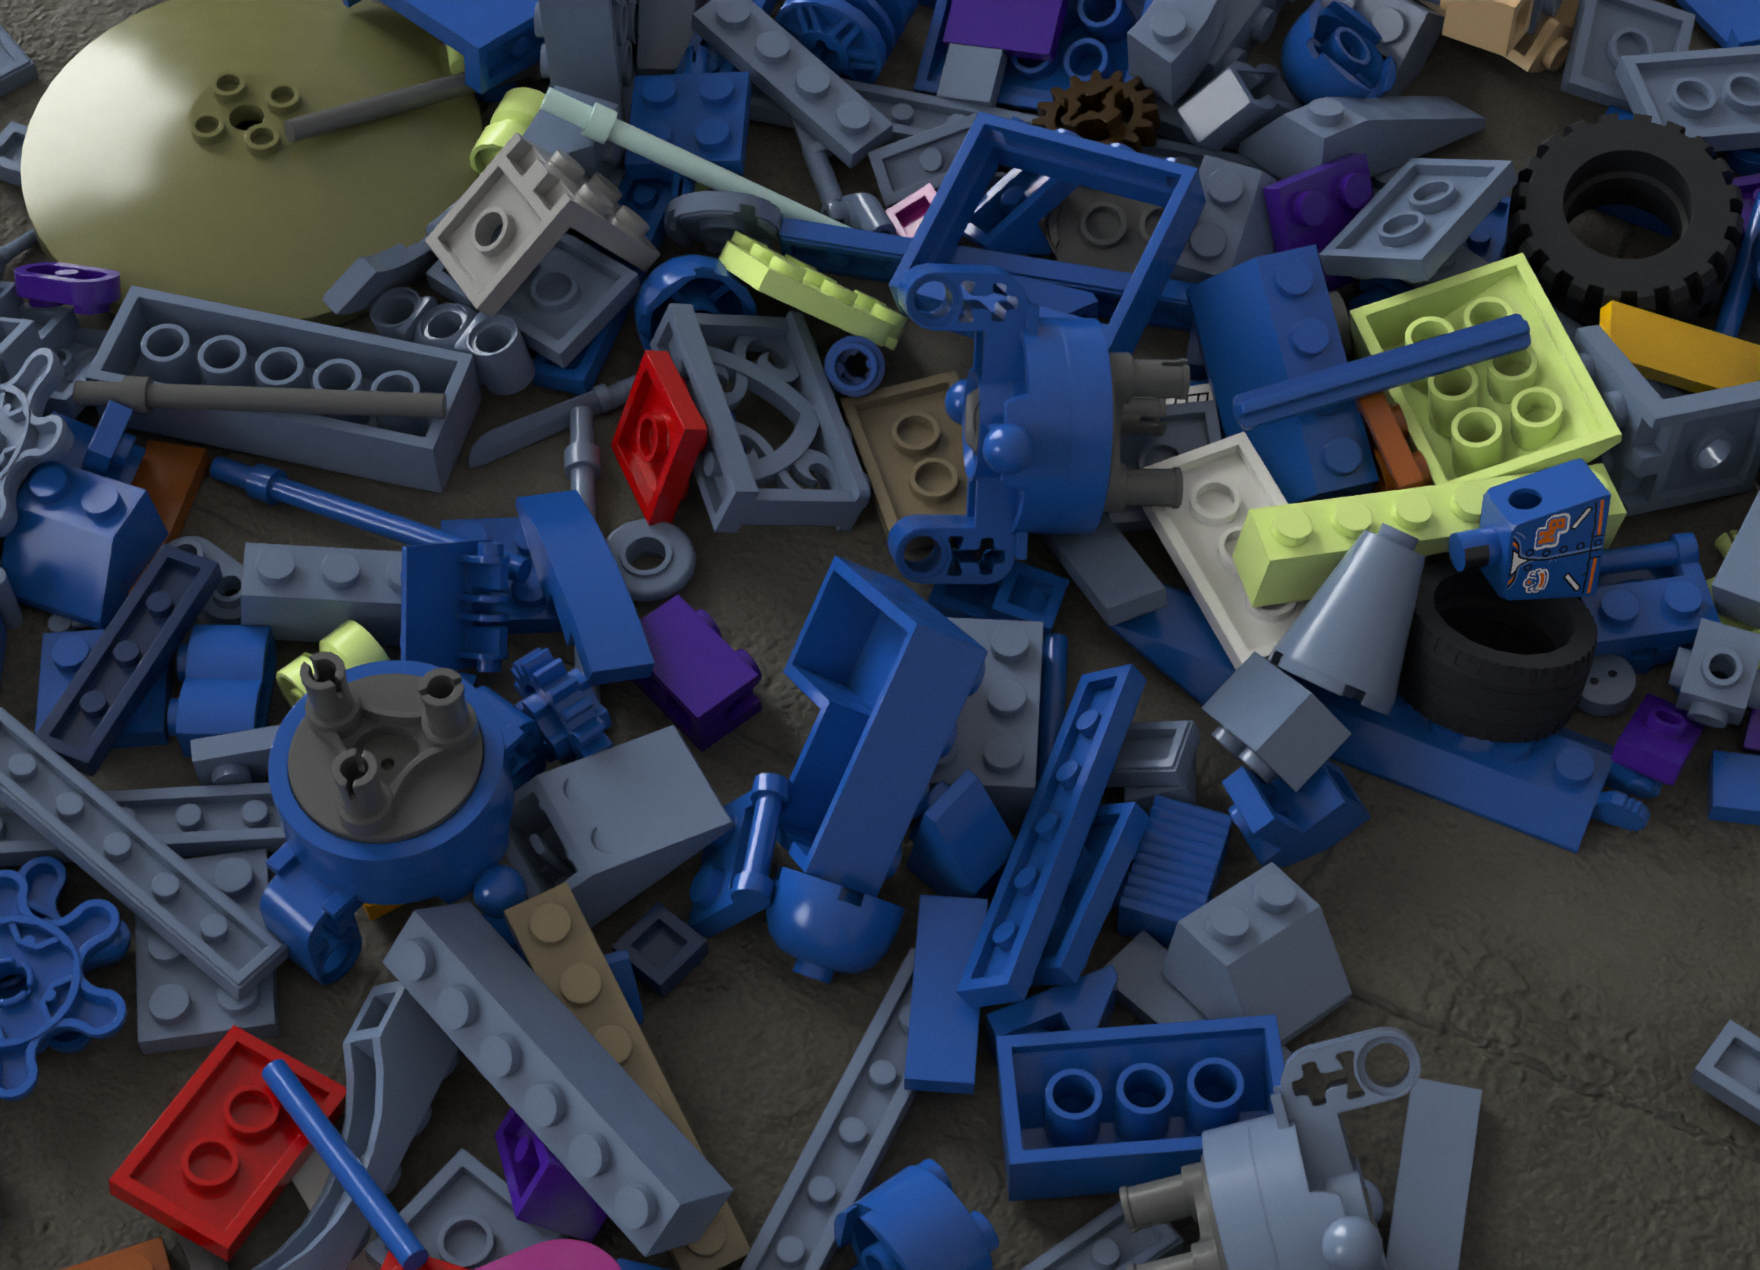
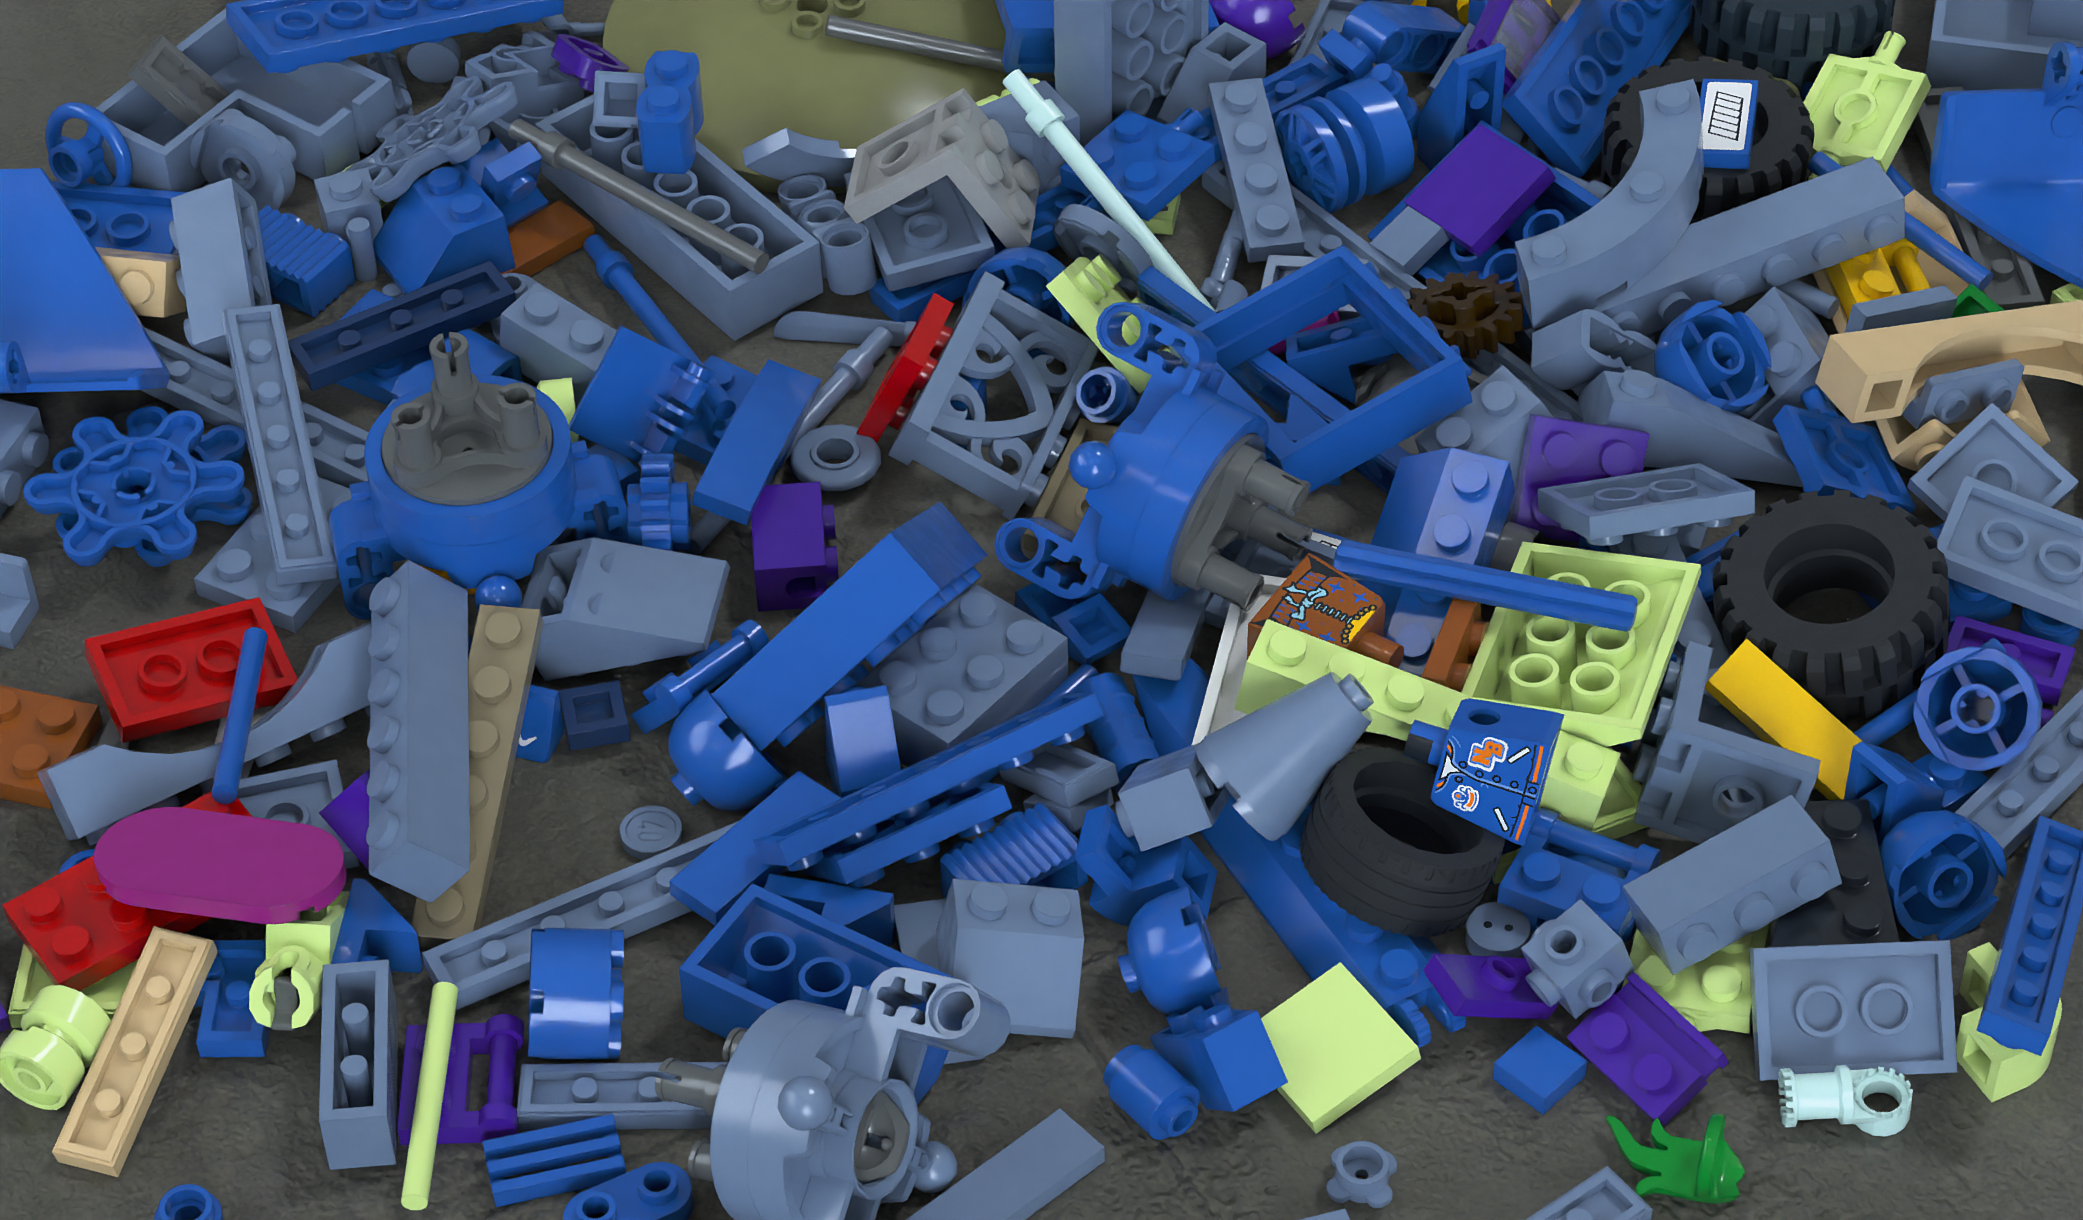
camera: 35 degrees right, 10 degrees down
(162, 309) = (617, 98): none -> sand blue slope
(229, 298) = (670, 112): none -> blue brick
(807, 1034) = (650, 831): none -> sand blue piece
(1165, 694) = (1121, 731): none -> blue axle
(1266, 469) = (1331, 608): none -> dark orange torso
(1392, 872) = (1172, 956): none -> blue cylinder
(1477, 1012) = (1152, 1092): none -> blue brick
(1493, 94) = (1837, 453): none -> blue plate
(1502, 941) = (1222, 1055): none -> blue slope
(1575, 876) = (1335, 1047): none -> yellowish green tile
(1702, 960) = (1366, 1160): none -> sand blue plate

